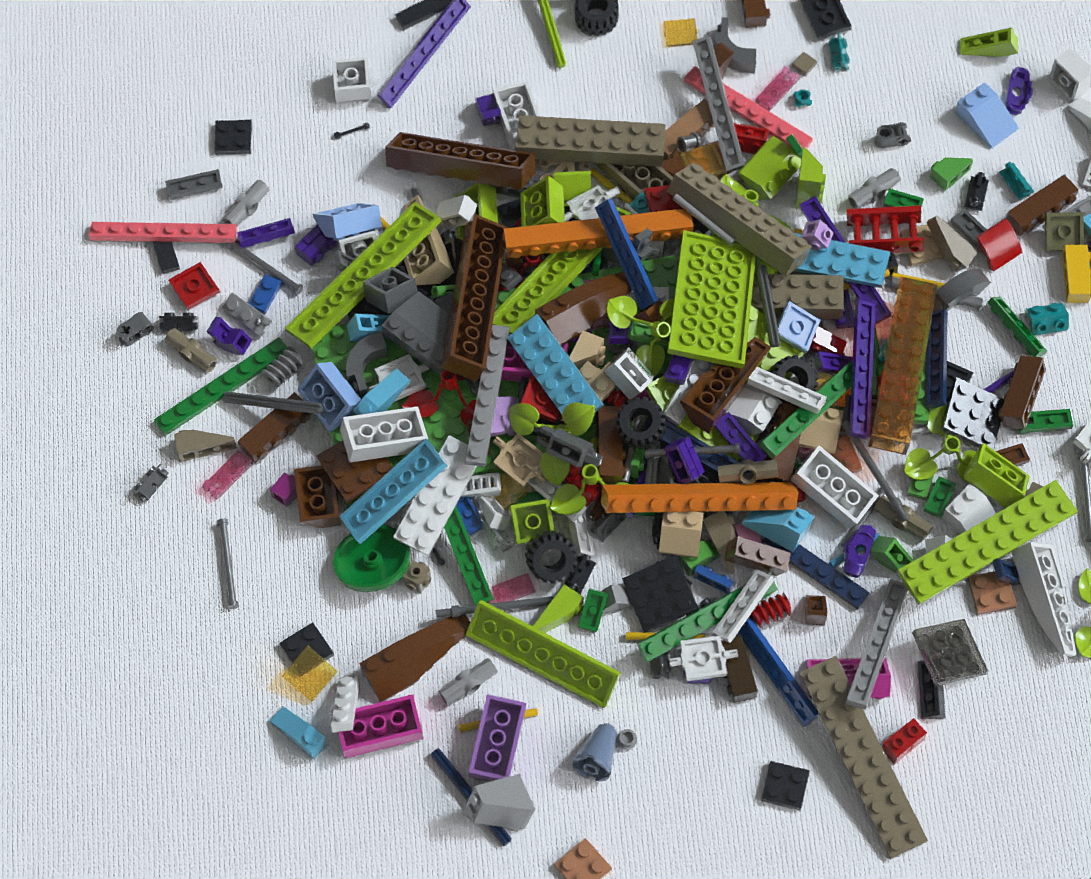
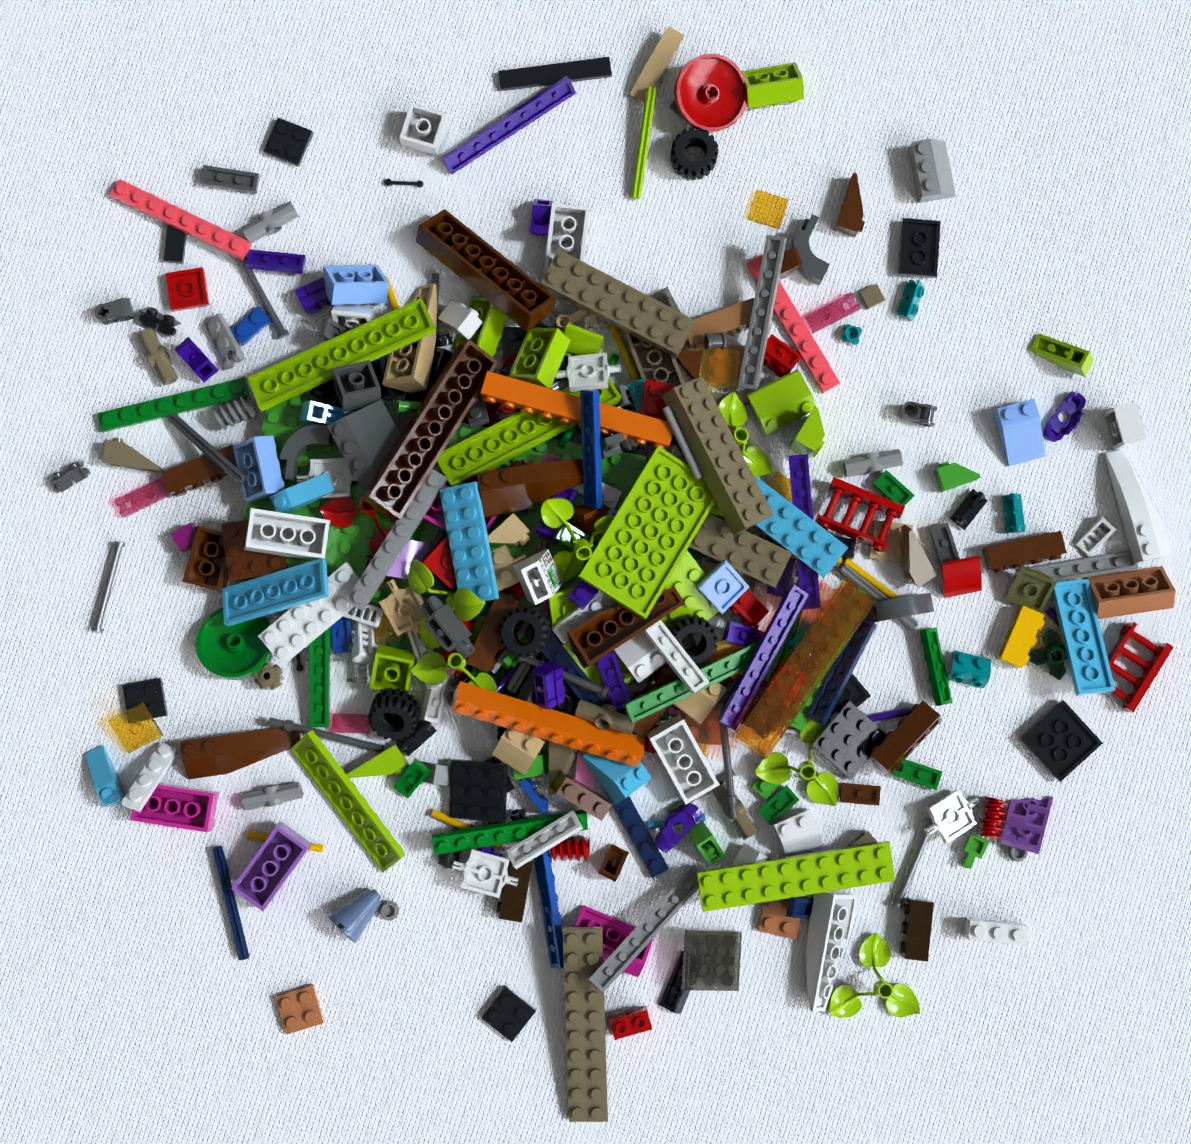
camera: 25 degrees right, 20 degrees up
(501, 803) = (248, 929): light grey slope -> none
(768, 307) = (703, 557): dark grey axle -> none
(795, 144) = (818, 396): green tile -> none
(817, 234) = (784, 504): lavender brick -> none
(996, 476) = (839, 812): lime slope -> none

